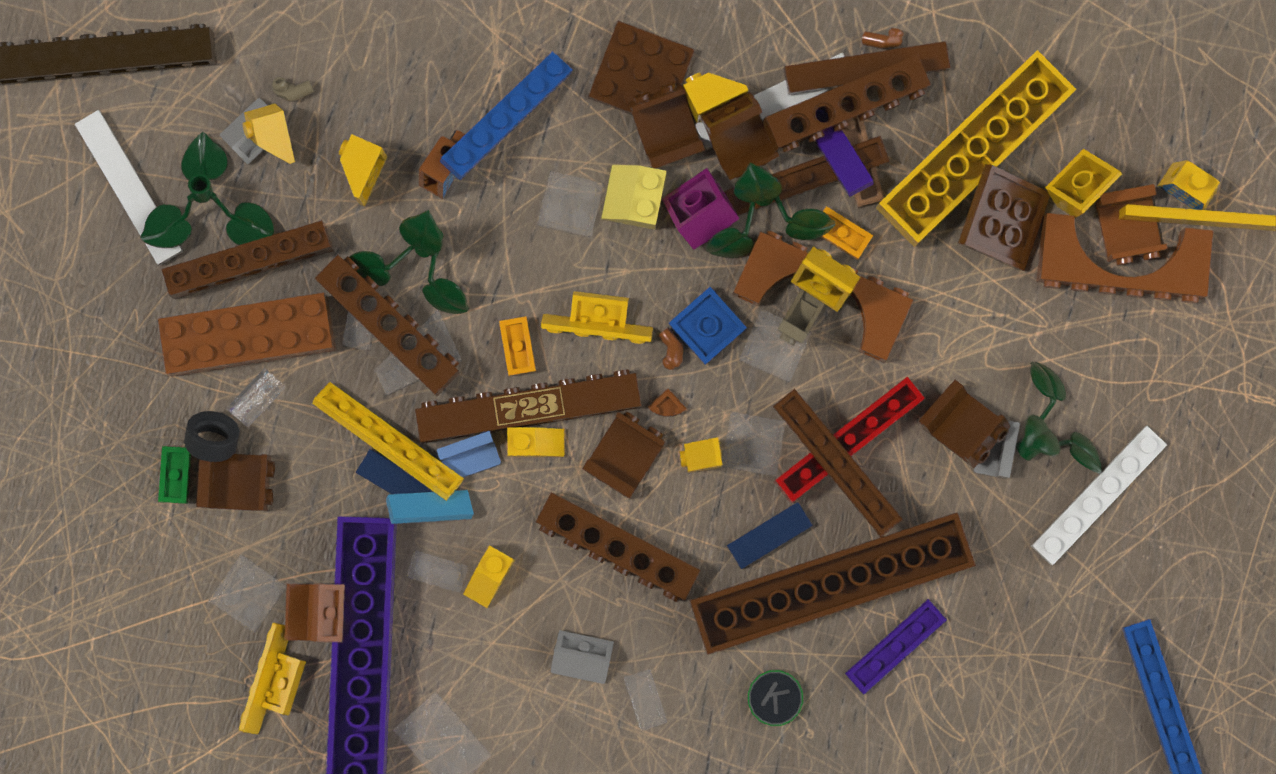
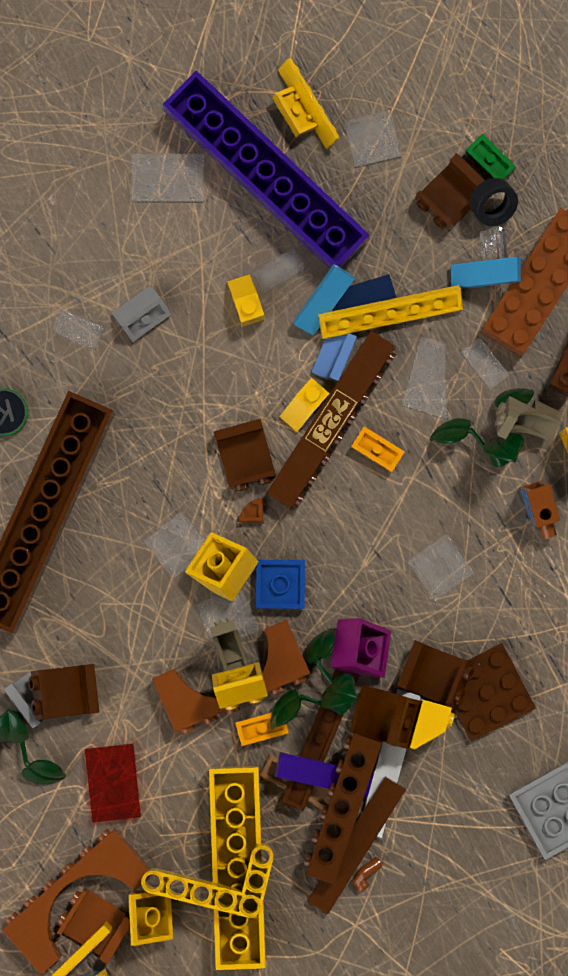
camera: 135 degrees right, 0 degrees up
(281, 387) = (486, 273): none -> dark azure tile
(314, 612) = (321, 167): dark orange panel -> none
(332, 280) = (526, 366): reddish brown brick -> none
(372, 233) = (520, 417): none -> dark tan arch
(506, 116) = (536, 575): blue plate -> none
(558, 507) = (129, 409): reddish brown brick -> none
(598, 316) = (349, 518): yellow bracket -> none
(634, 195) = (408, 613): light yellow slope -> none
(674, 351) = (282, 547): dark orange arm -> none
(701, 455) = (199, 503): yellow slope -> none
(737, 387) = (222, 566): none -> yellow slope
(769, 535) = (109, 502): dark blue tile -> none
(837, 463) = (113, 584): reddish brown tile -> none
(852, 437) = (123, 607): red brick -> none
(1001, 317) = (113, 782): none -> clear red plate
(1004, 217) = (175, 840): reddish brown plate -> none
(1011, 145) = (215, 889): none -> yellow beam

